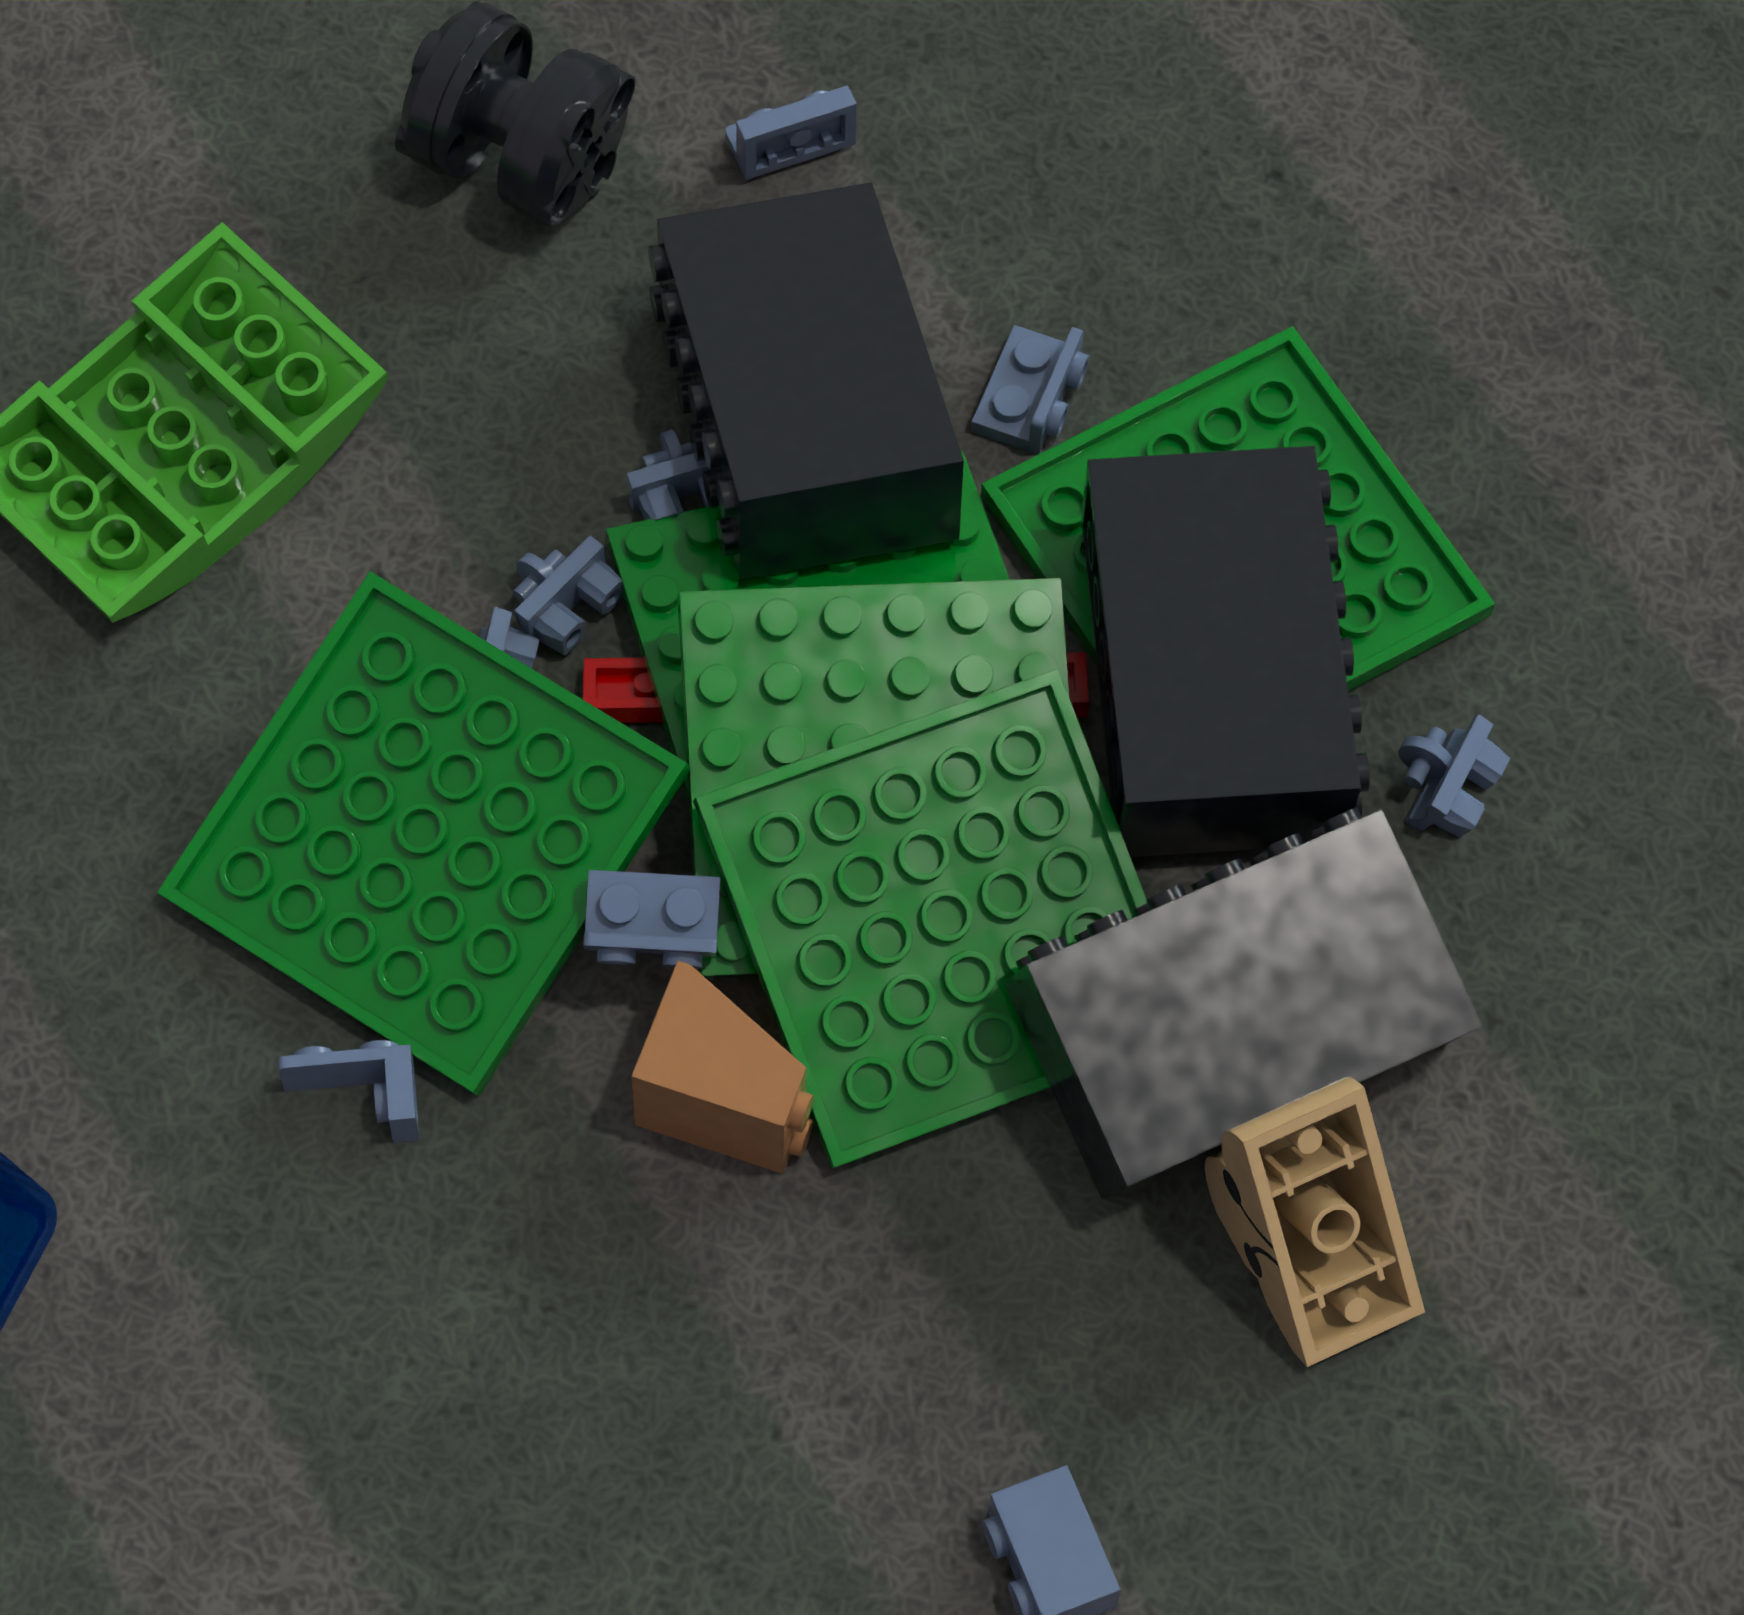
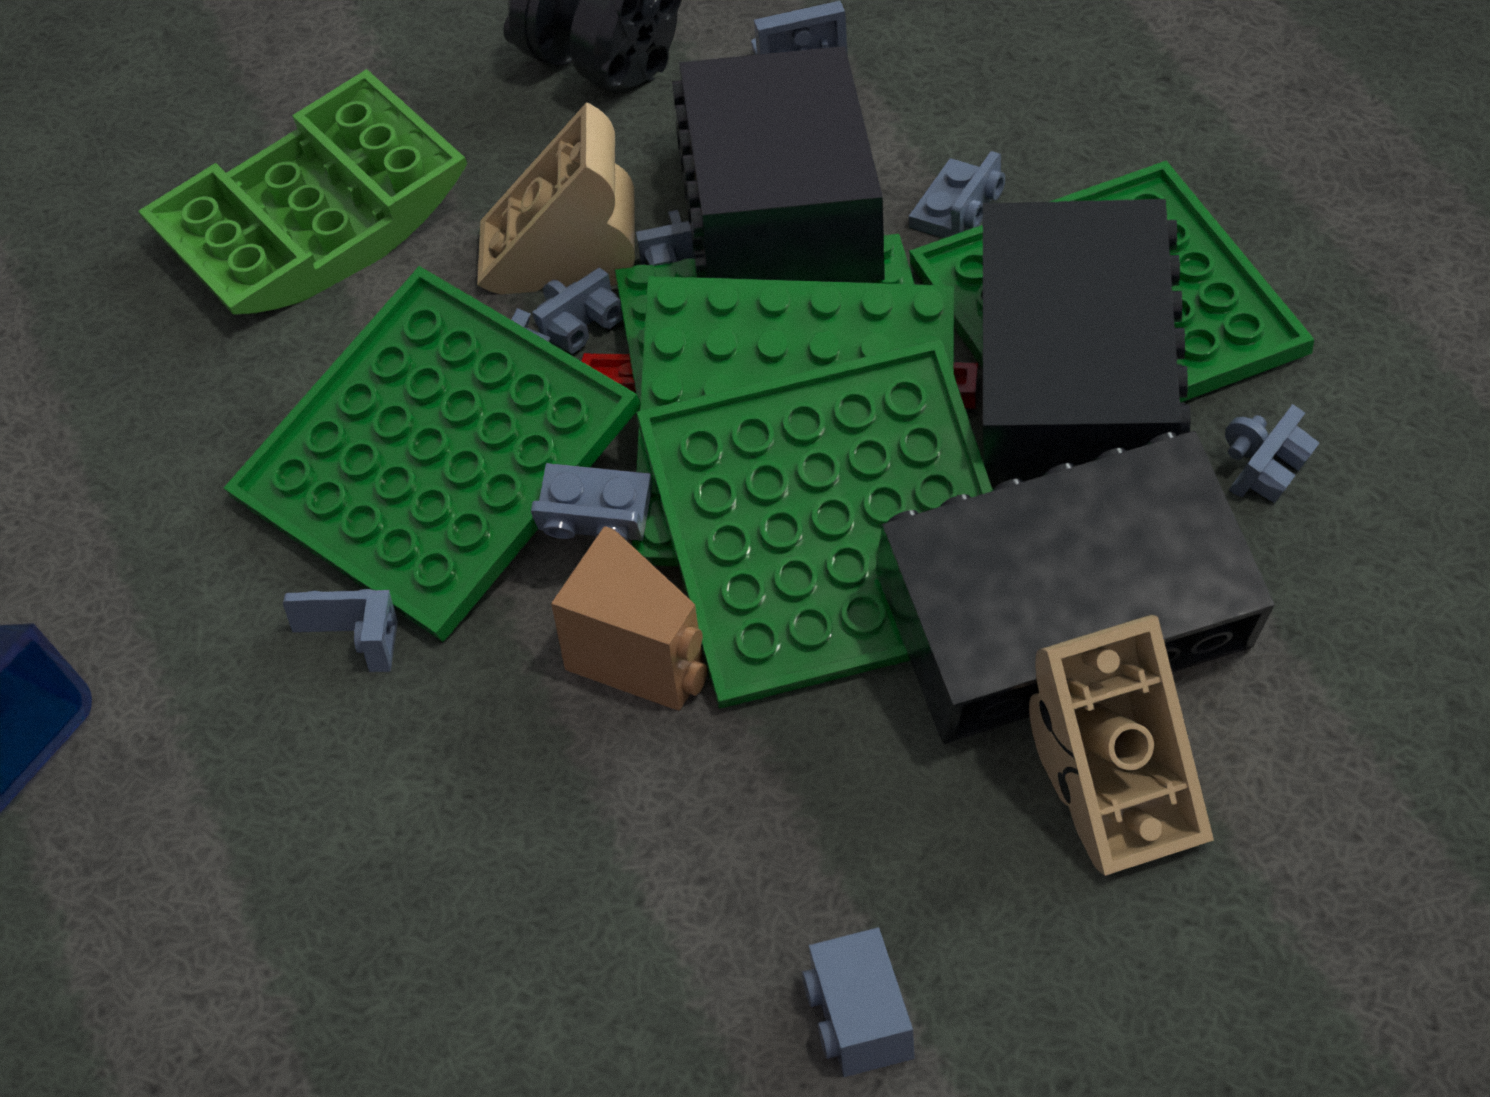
camera: 15 degrees right, 15 degrees down
(525, 460) = (562, 214): none -> tan brick

